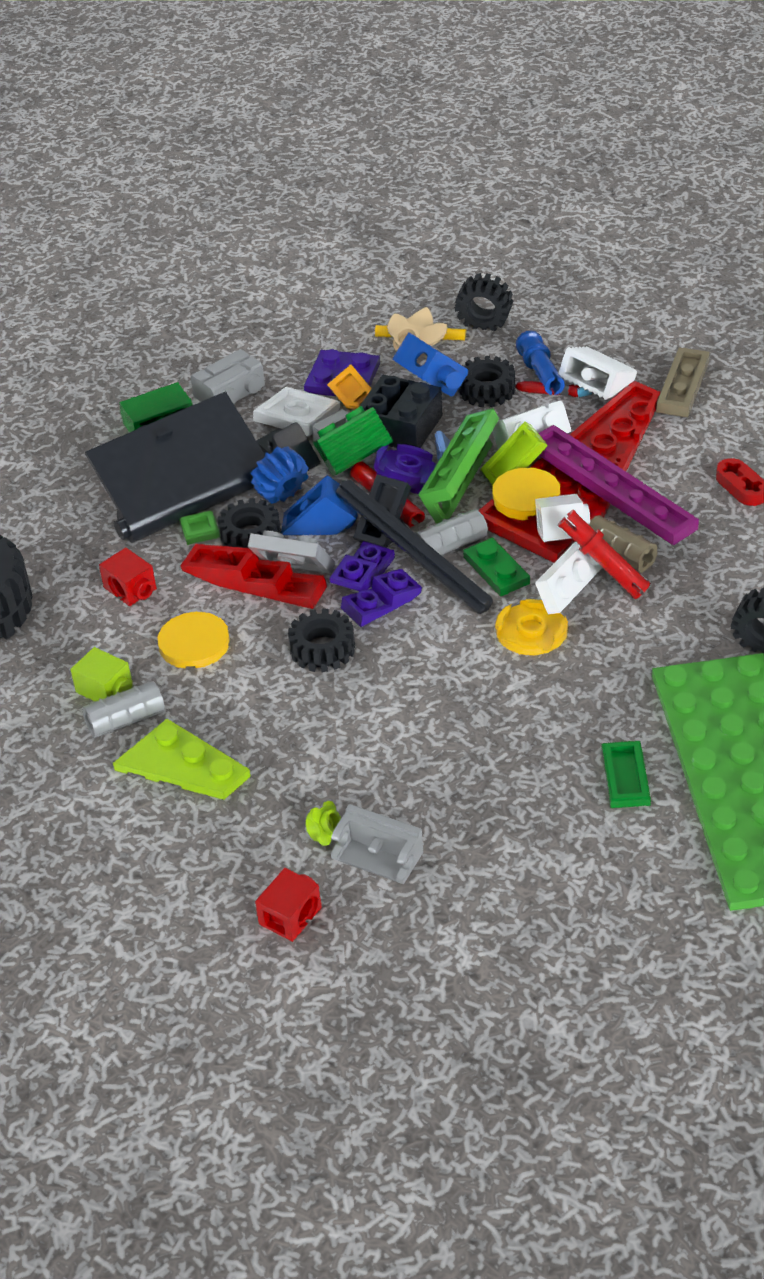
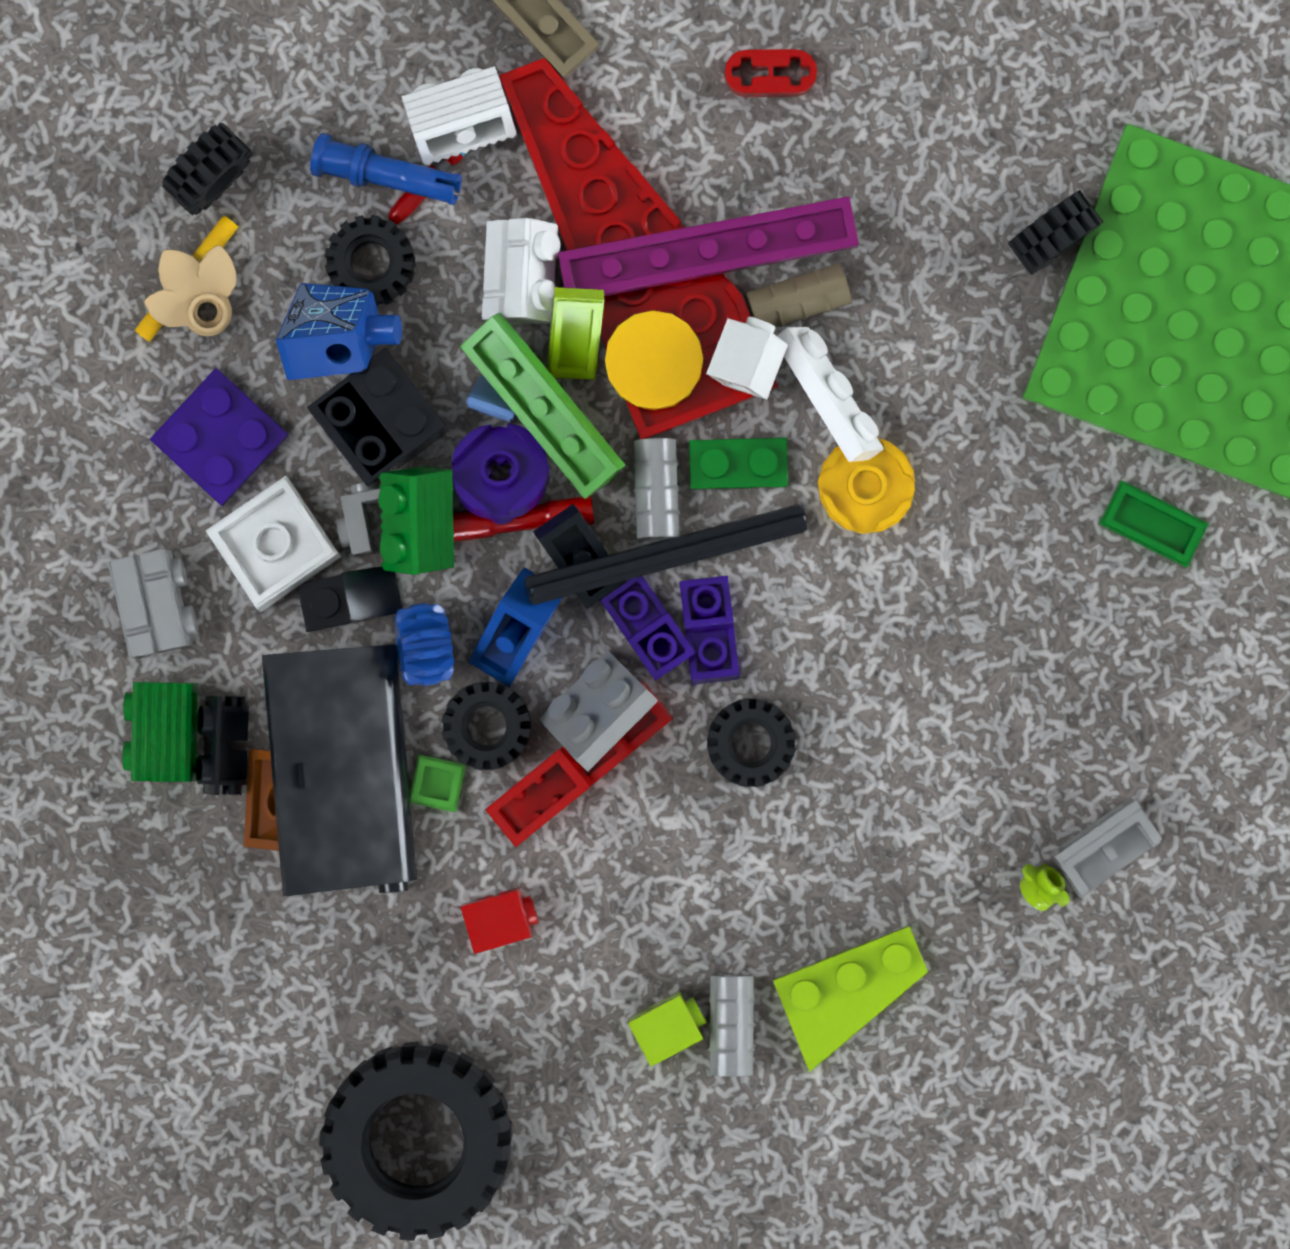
camera: 60 degrees left, 45 degrees up
(193, 640) = (649, 887): yellow tile -> none
(288, 904) = (1135, 979): red brick -> none
(350, 388) = (283, 448): light orange tile -> none
(605, 555) = (827, 353): red pin -> none

